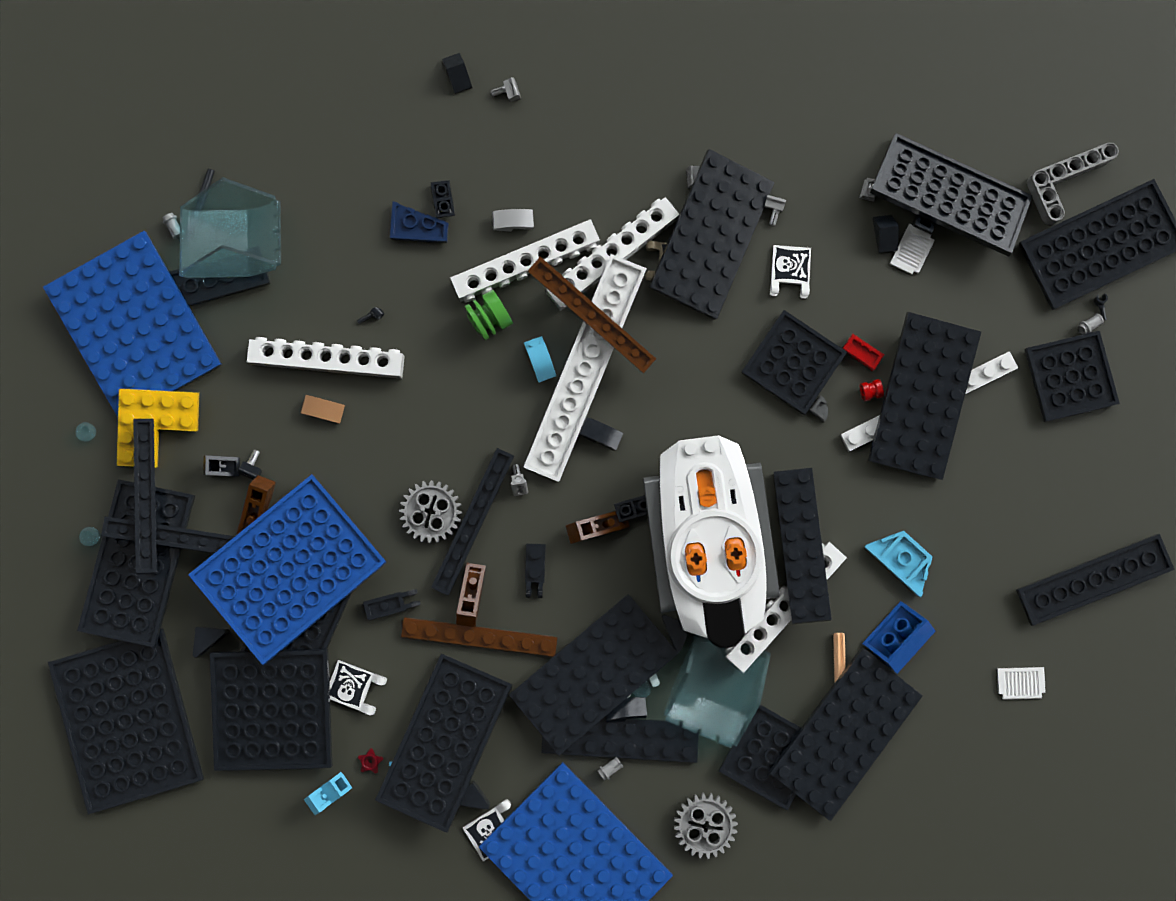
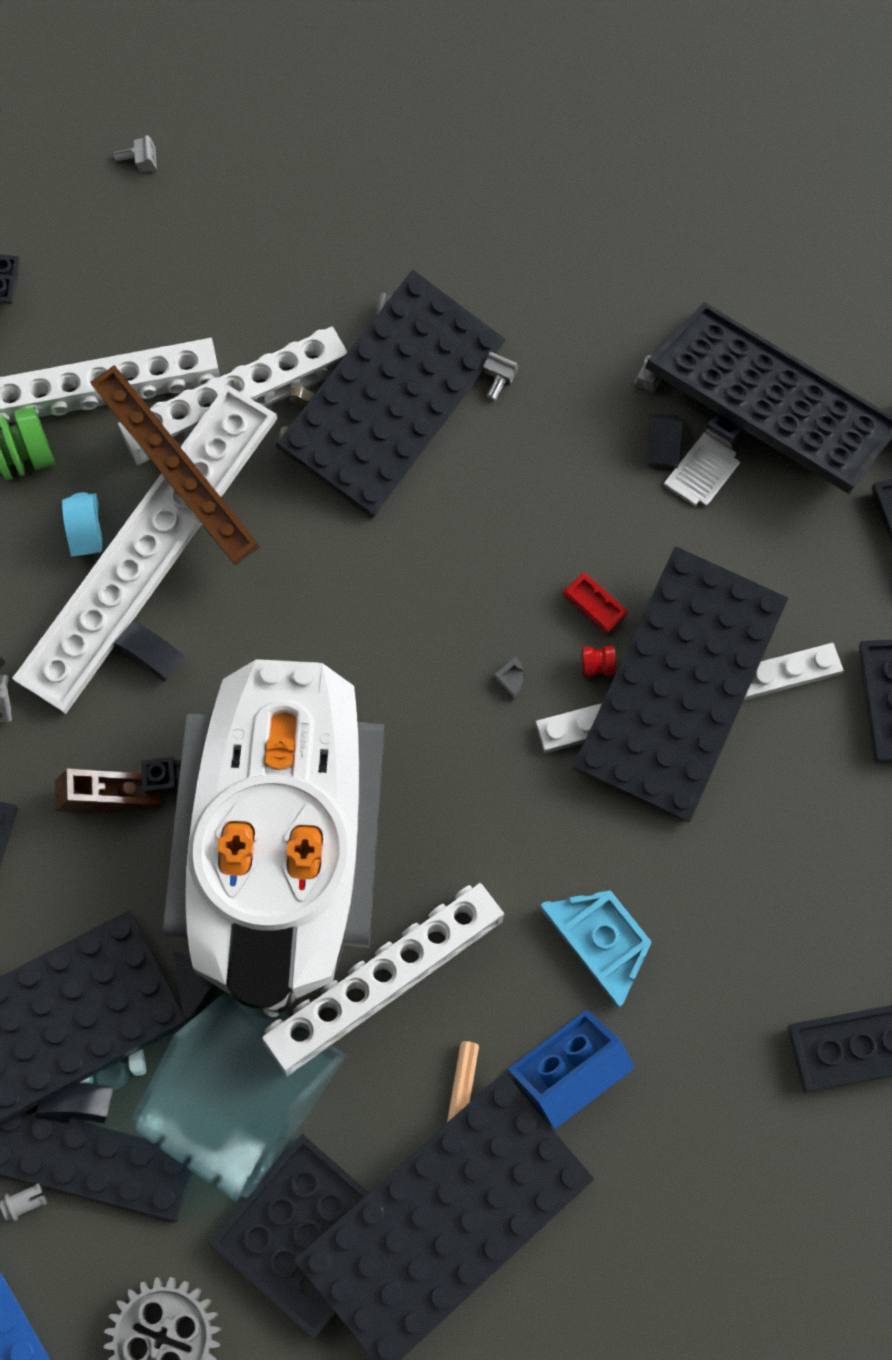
camera: 15 degrees right, 15 degrees down
(457, 73) = (72, 124): black slope -> none
(512, 219) = (91, 321): light grey slope -> none
(790, 266) = (508, 462): flag -> none
(794, 362) = (482, 599): black plate -> none
(802, 546) = (432, 884): black plate -> none
(1021, 683) = (773, 1191): white window -> none

